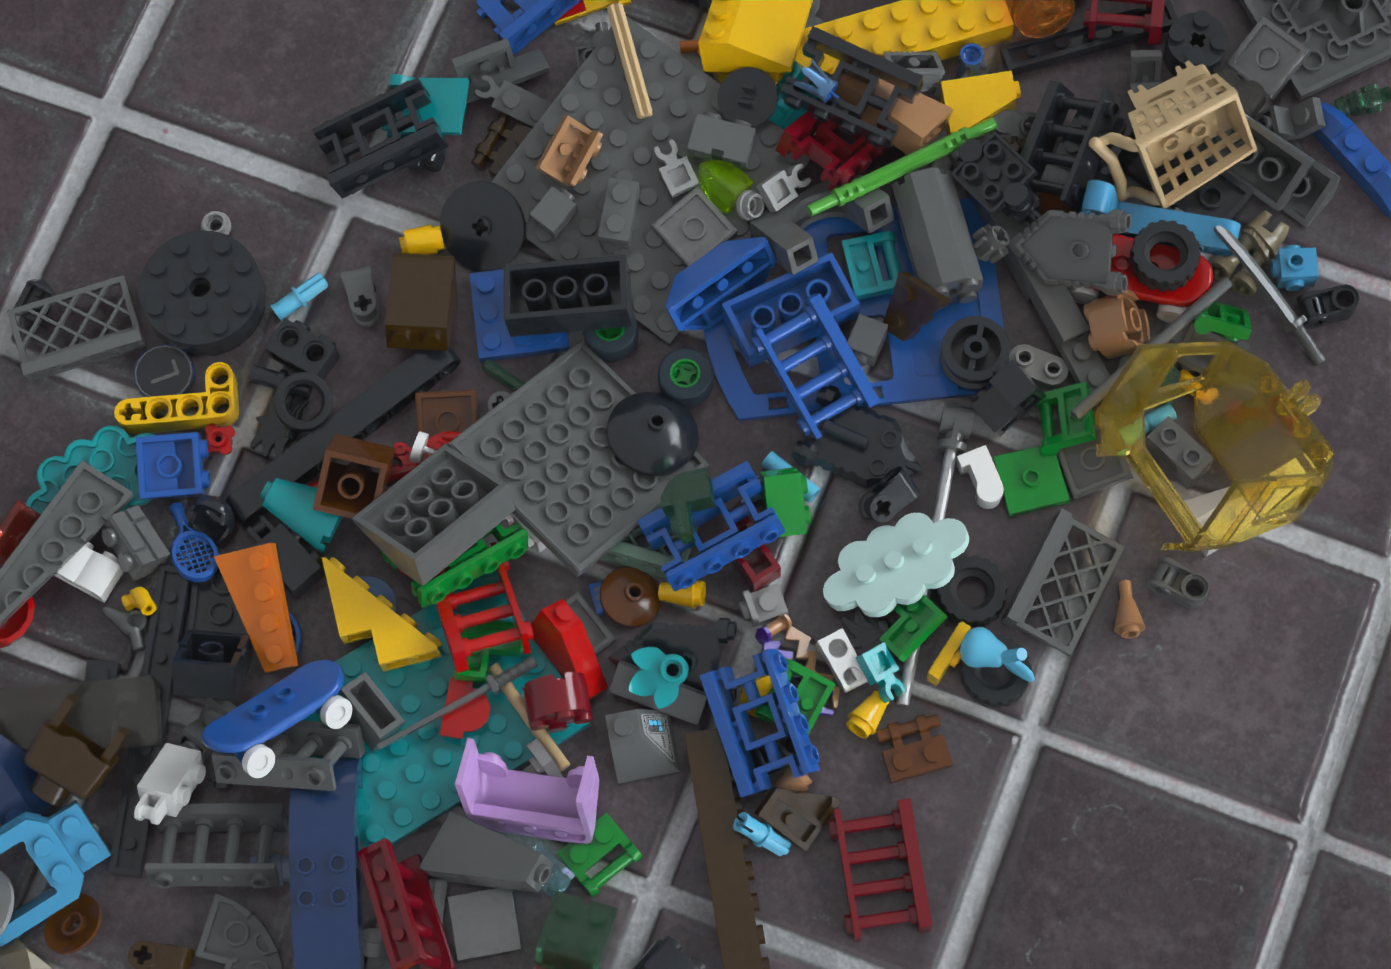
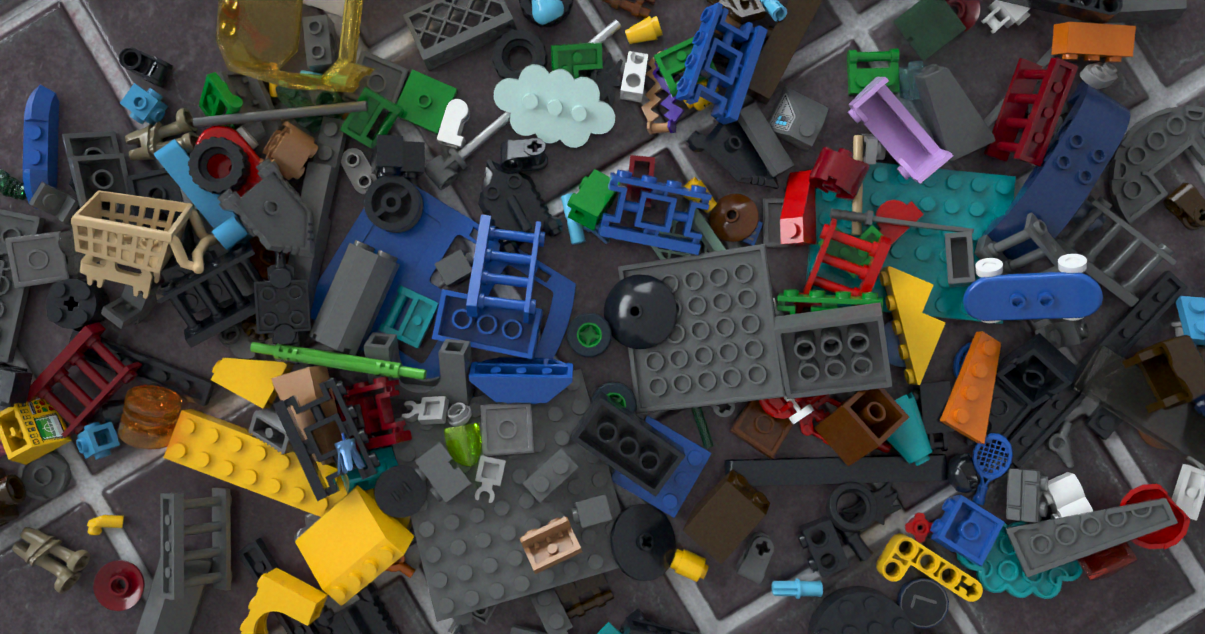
camera: 145 degrees left, 15 degrees up
(139, 599) = (1046, 453): yellow arm -> none
(169, 783) = (1121, 311): white brick -> none
(484, 924) = (978, 80): flat silver tile -> none
(629, 61) = (459, 580): tan axle -> none
(653, 678) = (763, 145): teal plate -> none
(686, 494) = (658, 240): clear green brick -> none
(763, 605) = (655, 147): light grey bracket -> none
(879, 668) = (617, 50): teal plate -> none
(911, 306) = (409, 262): dark brown wing -> none
(949, 655) = (565, 28): yellow plate -> none
(971, 57) = (229, 410): piece -> none
(991, 243) = (323, 265): dark grey gear -> none
(1294, 323) = (176, 71): dark grey sword -> none

